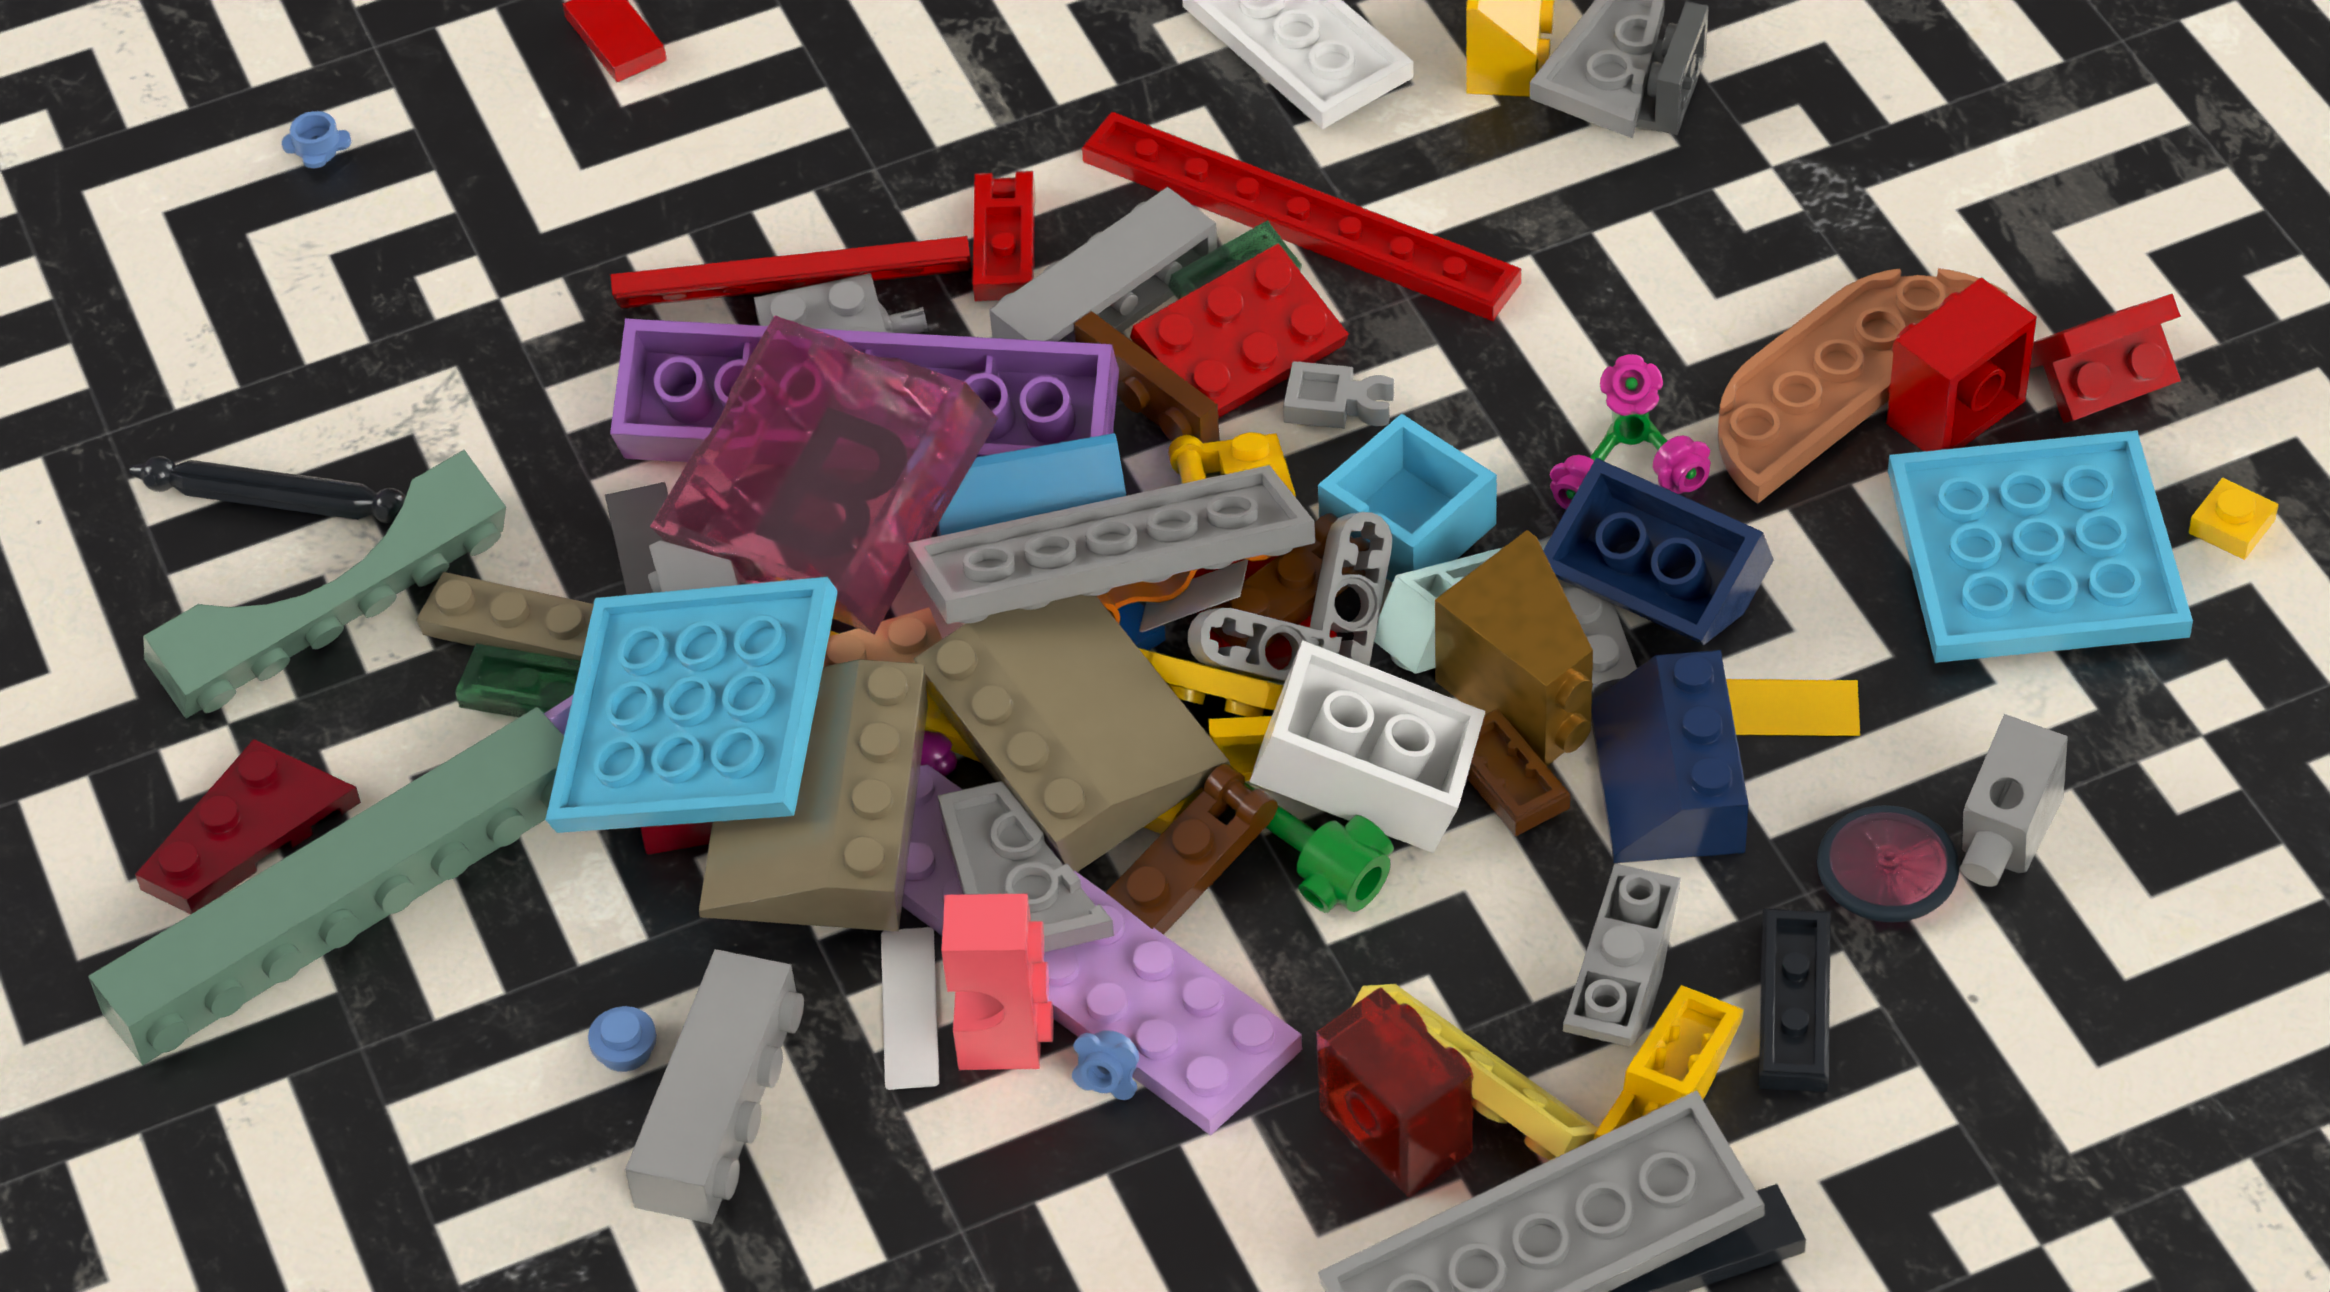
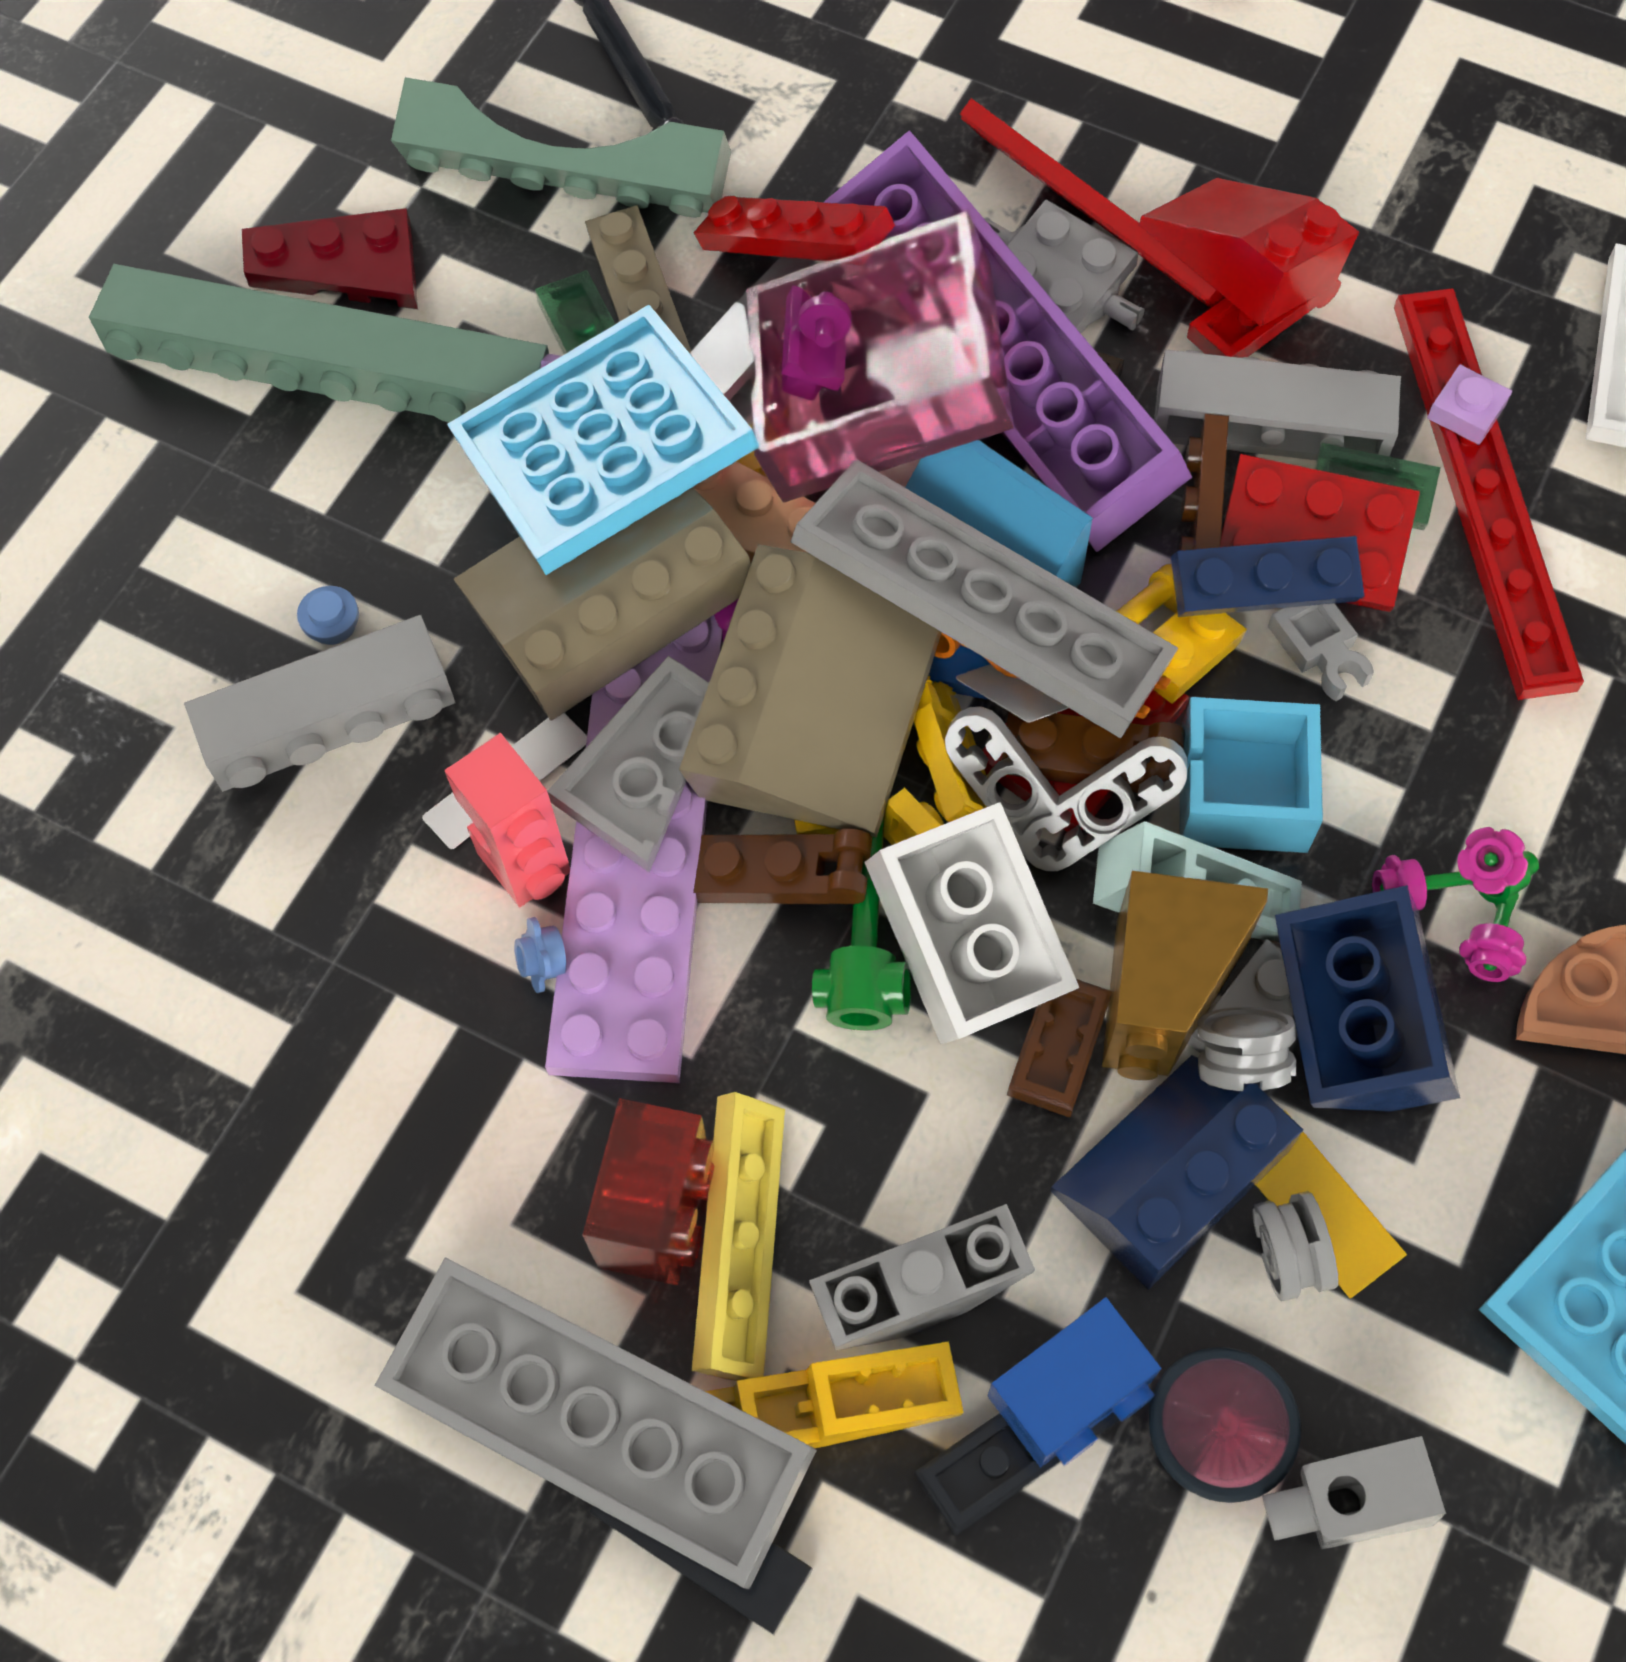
camera: 50 degrees right, 15 degrees up
(610, 468) = (792, 228): none -> red plate
(761, 501) = (814, 343): none -> magenta hips
(954, 188) = (1255, 243): none -> red slope
(1228, 169) = (1469, 404): none -> lavender plate
(1255, 380) = (1267, 576): none -> dark blue plate
(1630, 640) = (1246, 1048): none -> light grey wheel
(1786, 918) = (1075, 1384): none -> blue brick
(1798, 723) = (1295, 1246): none -> light grey wheel

